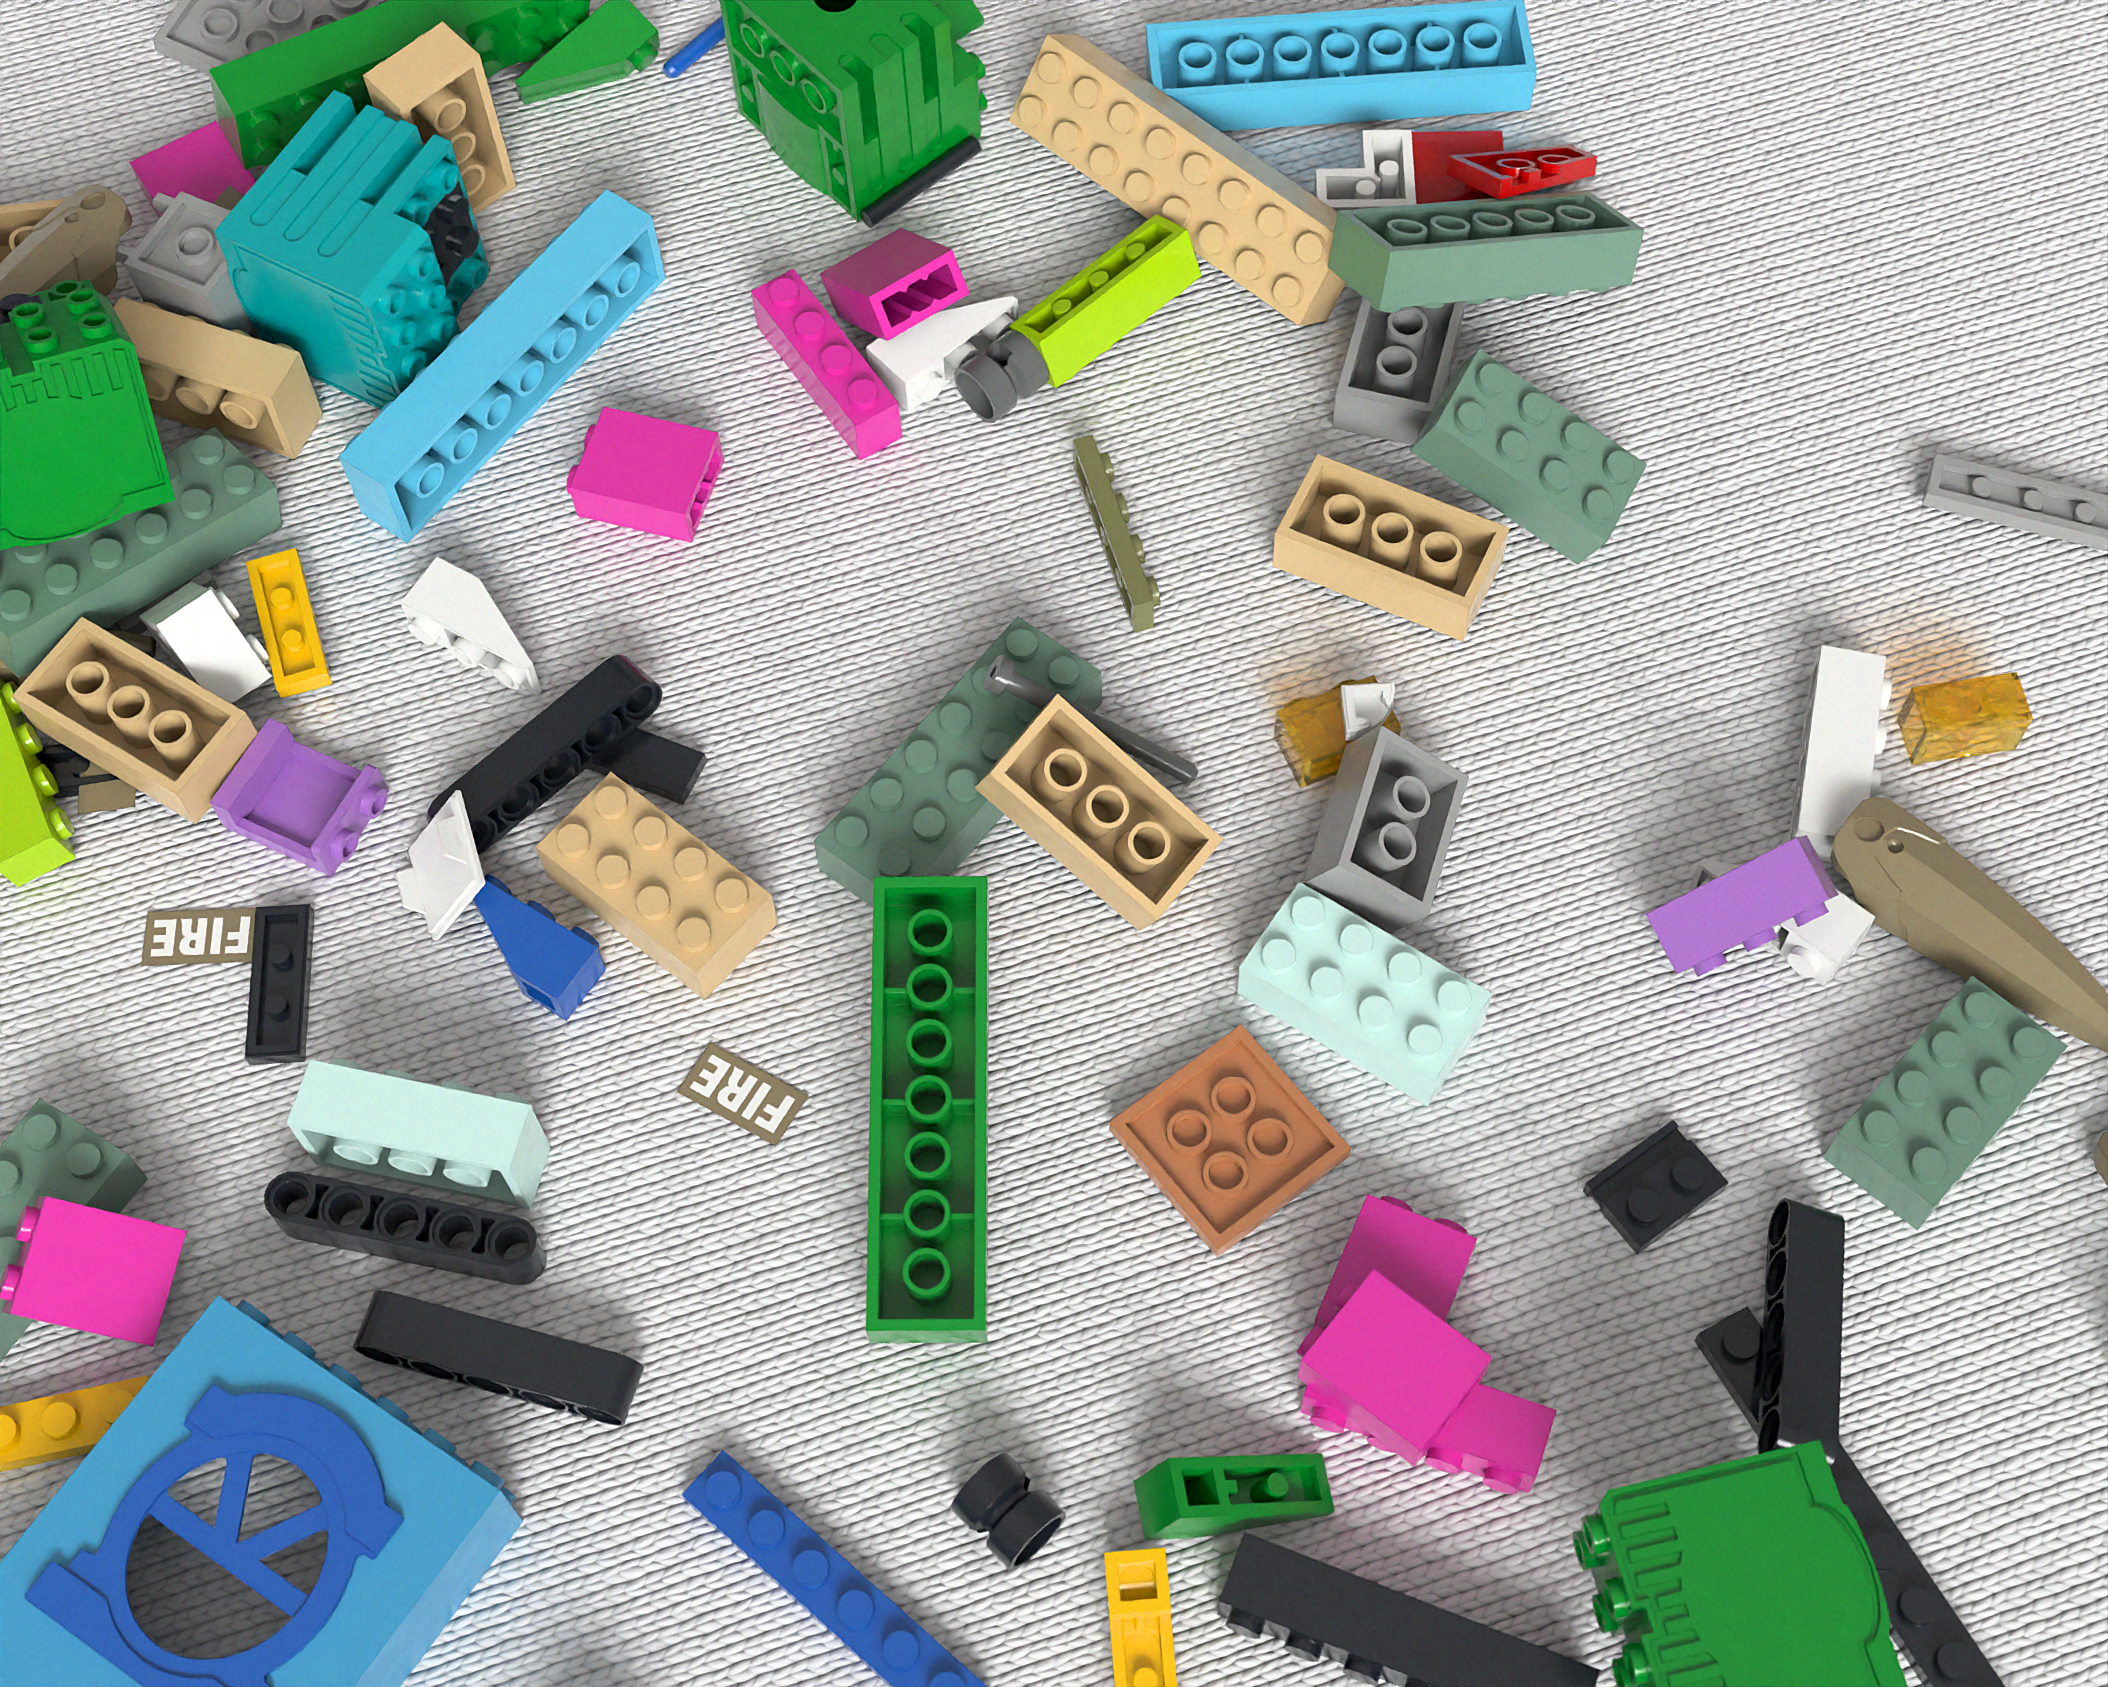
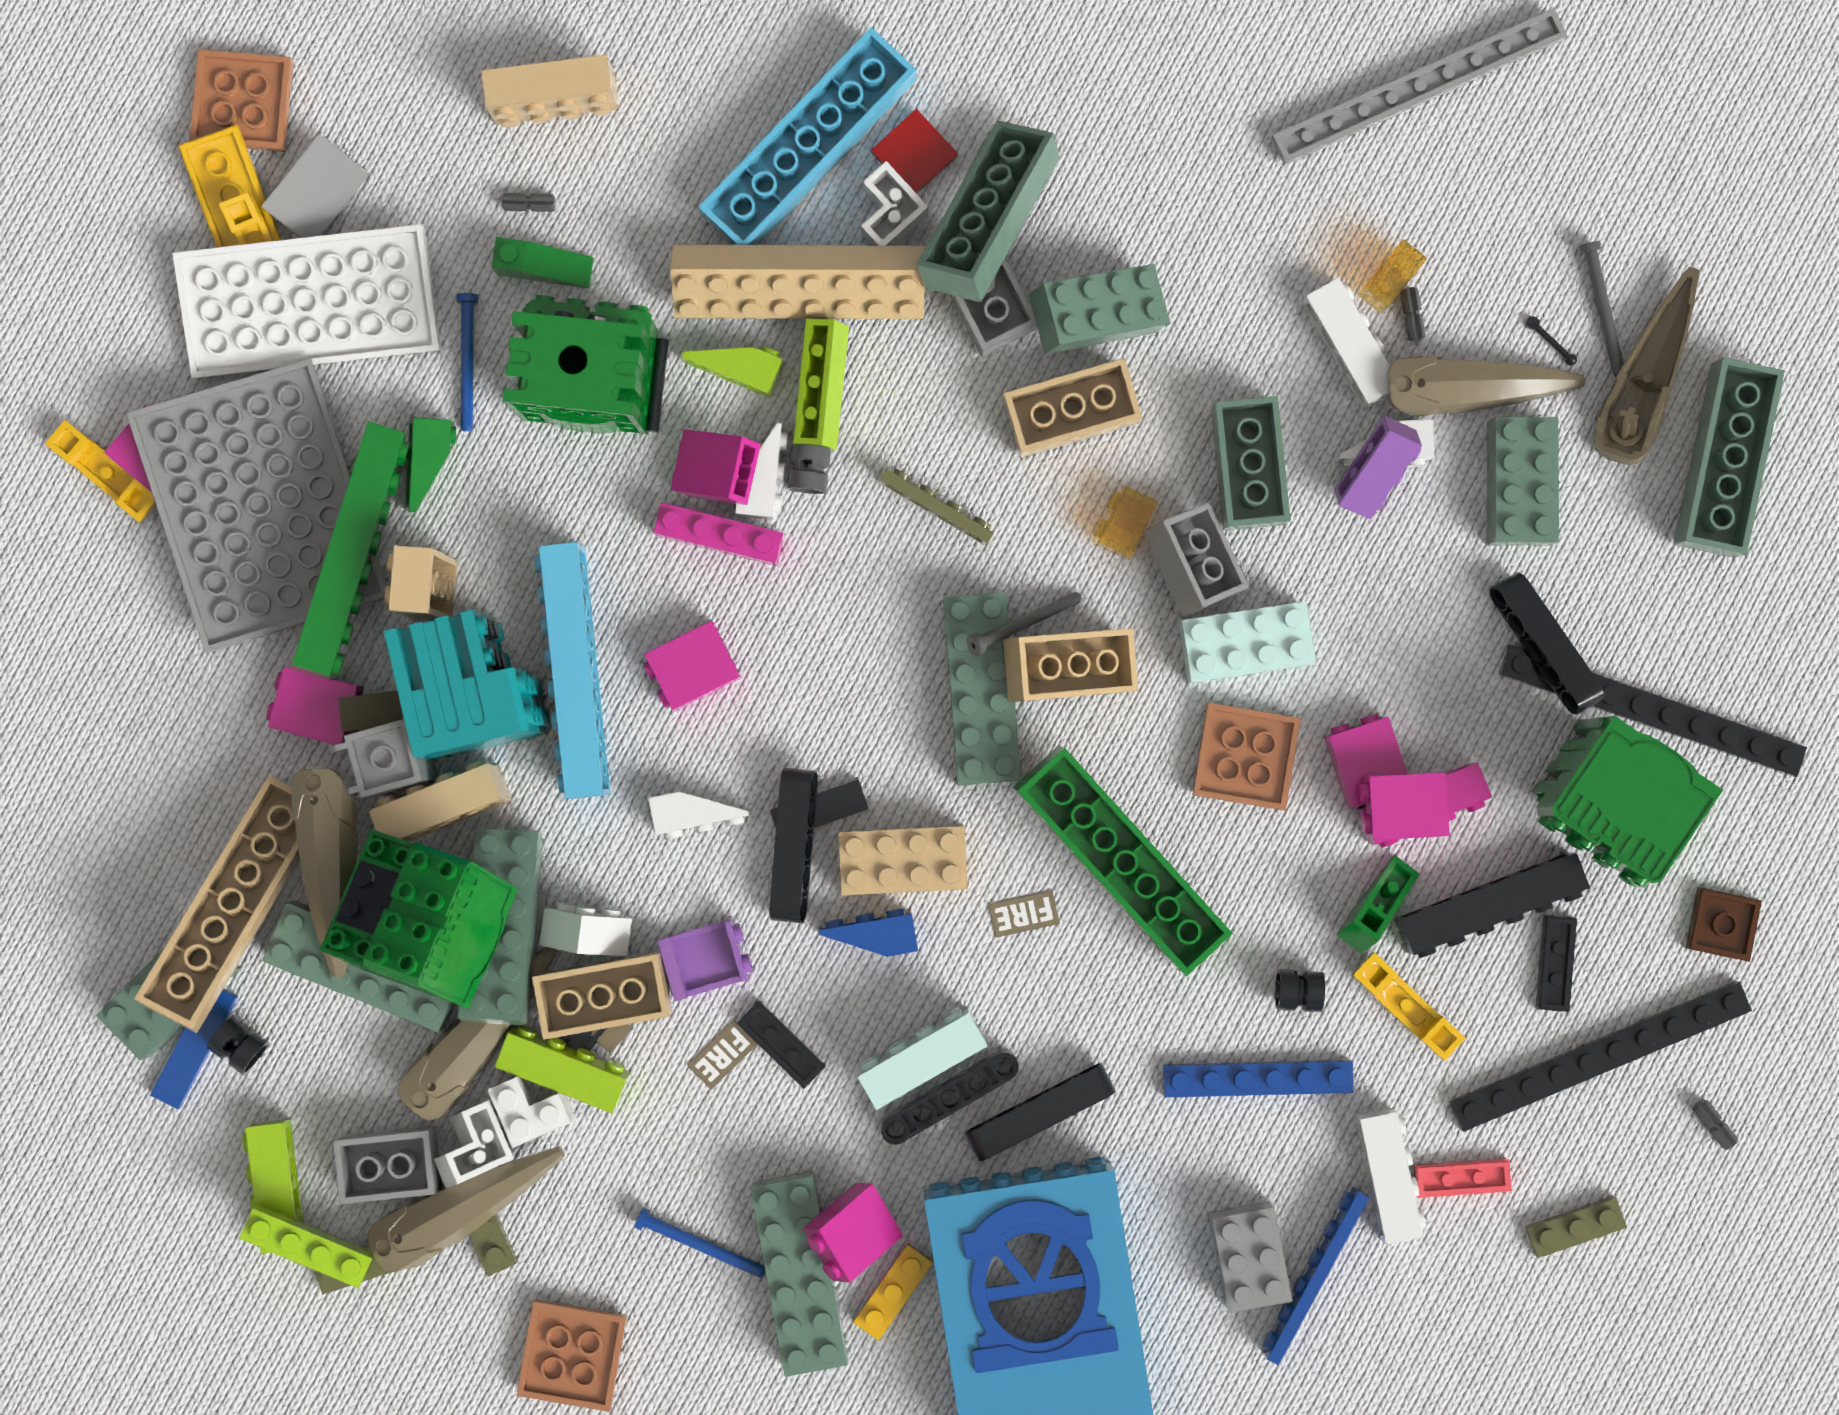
camera: 45 degrees left, 25 degrees up
(288, 623) = (605, 884): yellow plate -> none
(443, 869) = (805, 937): white piece -> none
(1033, 222) = (745, 366): none -> lime slope
(1365, 707) = (1137, 508): white tile -> none
(1521, 170) = (955, 134): red wing -> none
(1567, 782) = (1250, 463): none -> sand green brick
(1655, 1187) = (1432, 621): black plate -> none
(1956, 790) = (1411, 307): none -> dark grey piece

